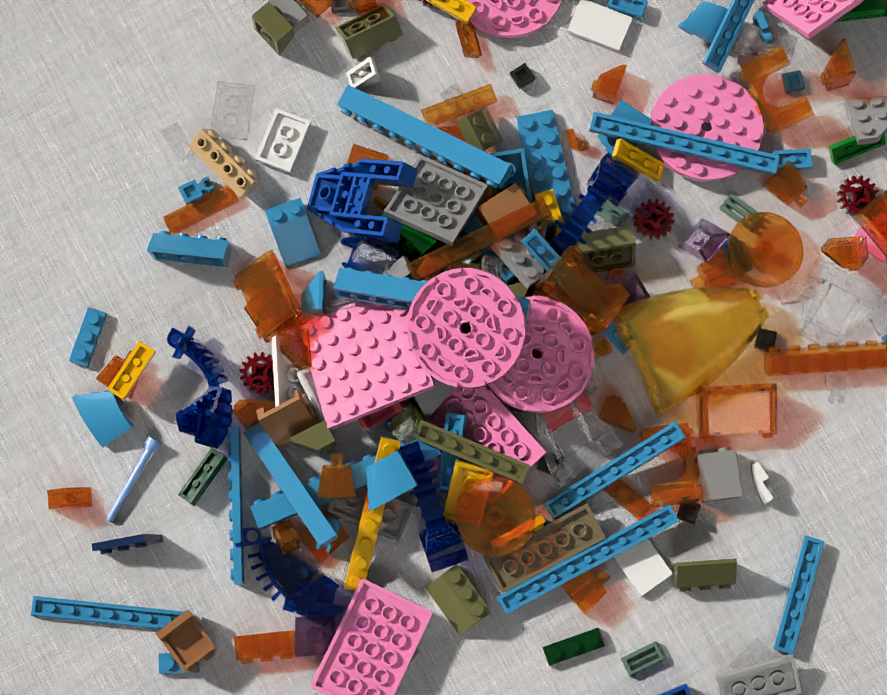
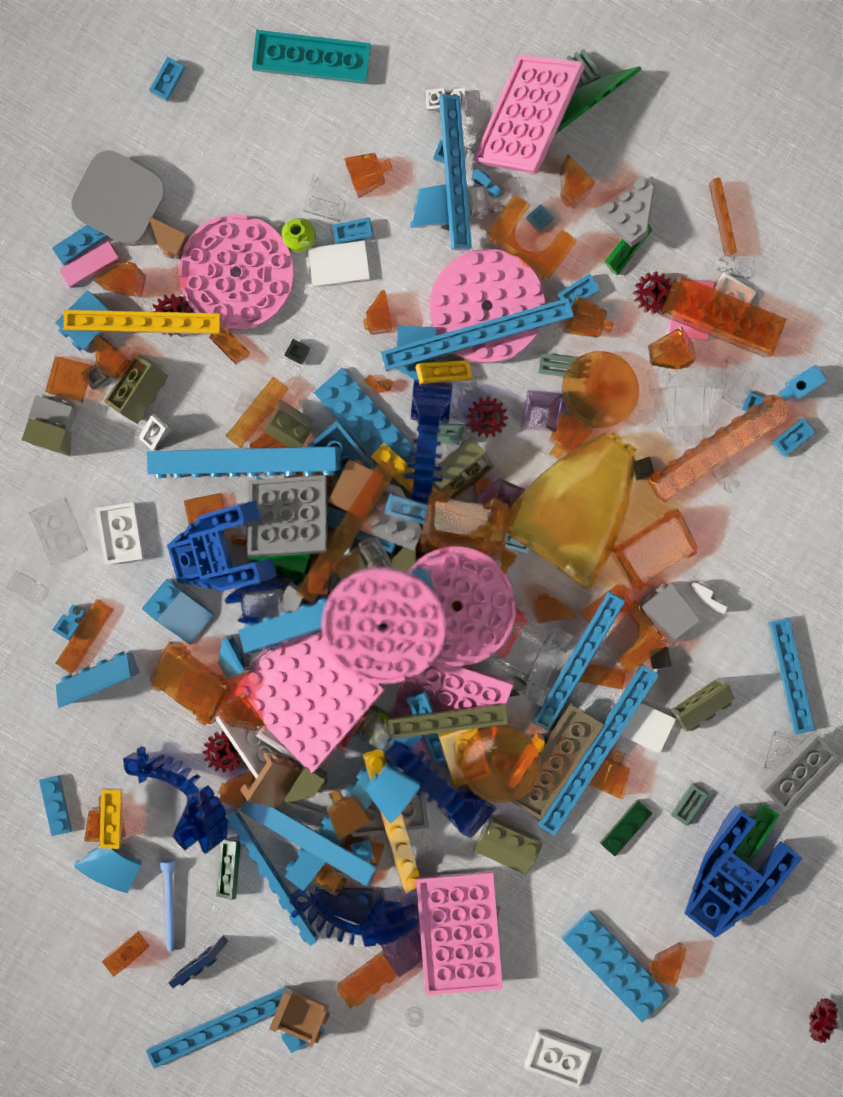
camera: 30 degrees left, 10 degrees up
(225, 162) = (80, 584): tan brick -> none
(547, 230) = (400, 484): pearl dark grey plate -> none

